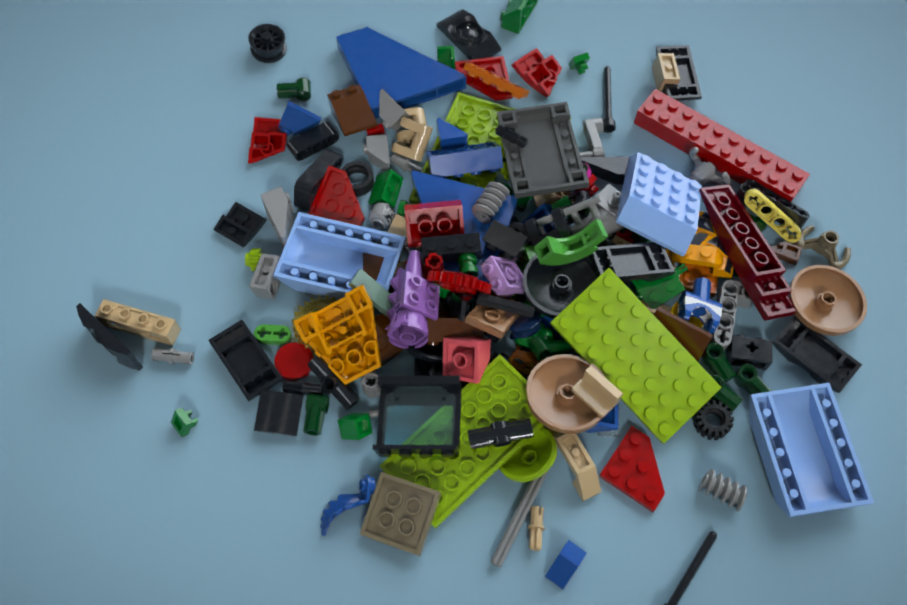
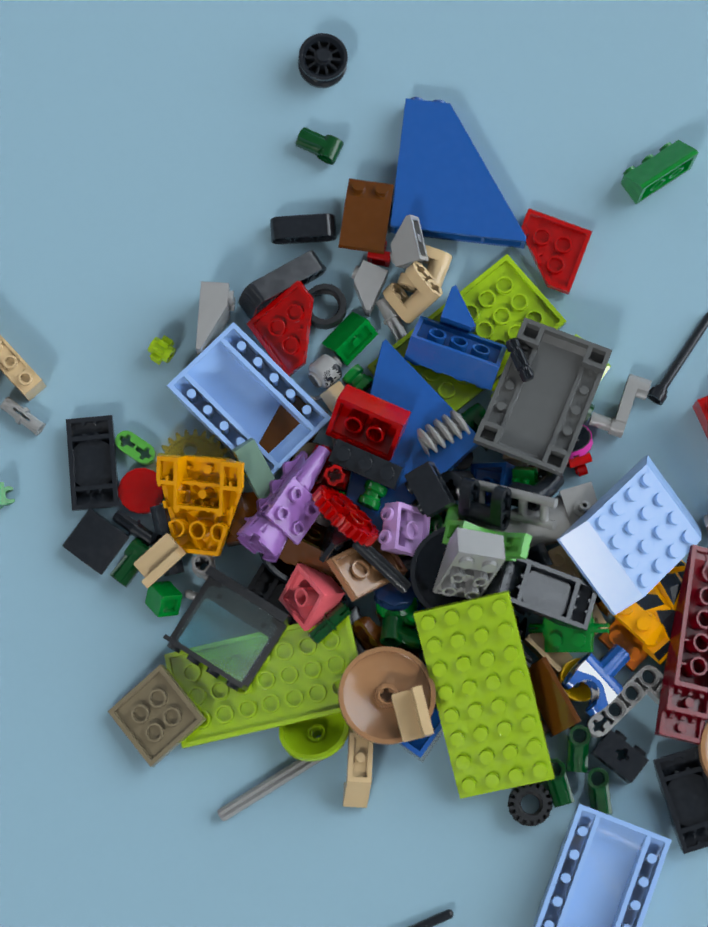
camera: 30 degrees right, 15 degrees up
(240, 224) = (168, 293): black slope -> none
(263, 281) = (155, 381): light grey brick -> none
(266, 139) = (255, 196): red slope -> none
(297, 120) = (295, 197): blue slope -> none
(336, 395) = (159, 559): none -> tan panel
(347, 502) = (113, 673): blue plant -> none
(446, 56) = (521, 198): green panel -> none
(469, 36) = (571, 176): black slope -> none
(490, 78) = (557, 265): orange plate -> none
(492, 367) = (330, 623): none -> dark green axle
(500, 433) = (296, 696): black piece -> none
(536, 528) = (279, 805): tan axle -> none
(538, 71) = (623, 274): red slope -> none
(565, 564) = (287, 855): blue slope -> none
(570, 262) = (469, 563): none -> light grey slope
(580, 63) = (679, 291): green tile -> none
(608, 168) = (618, 453): slope -> none
(635, 470) = (416, 805): red plate -> none
(724, 489) = (488, 878): light grey piece -> none

